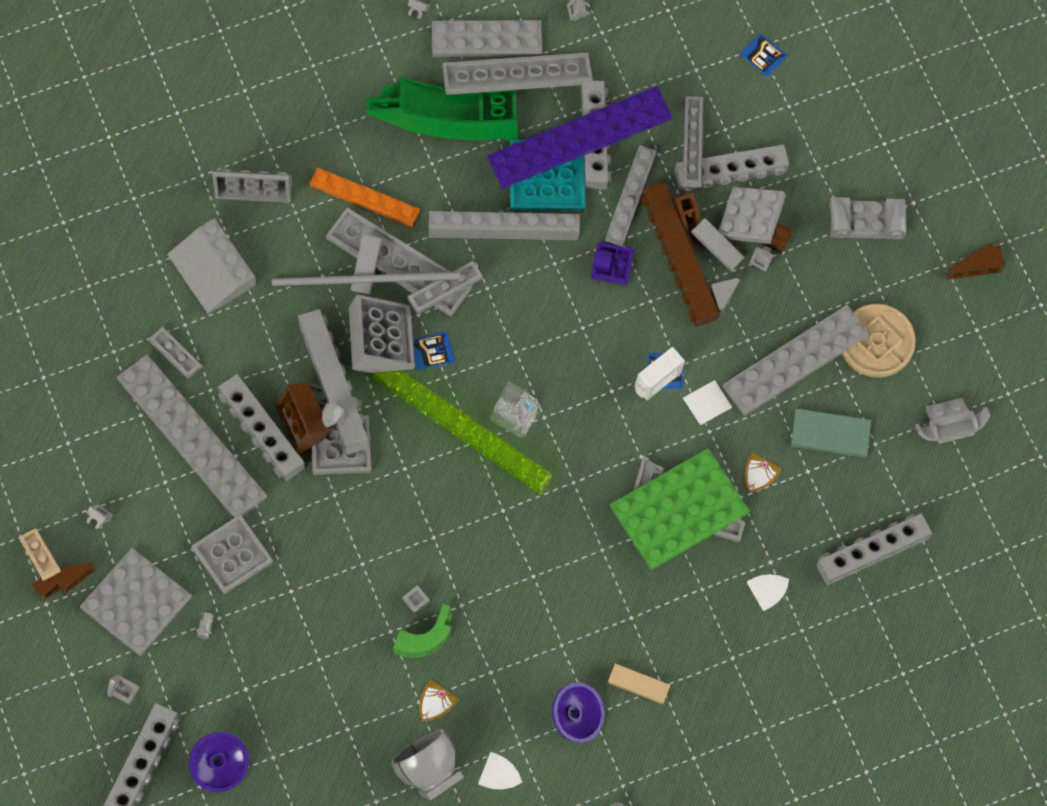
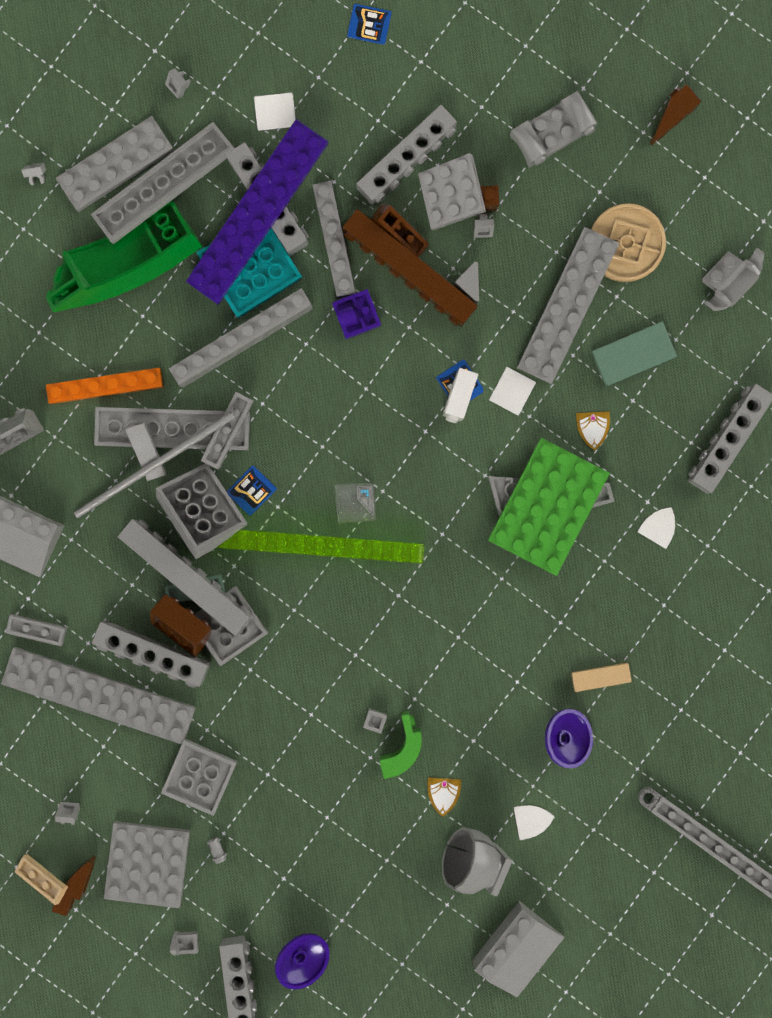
camera: 25 degrees left, 20 degrees up
(332, 414) = (205, 620): light grey plate -> none
(643, 73) = (274, 111): none -> white sticker
(693, 142) = (359, 152): light grey tile -> none
(717, 244) = (437, 239): light grey tile -> none

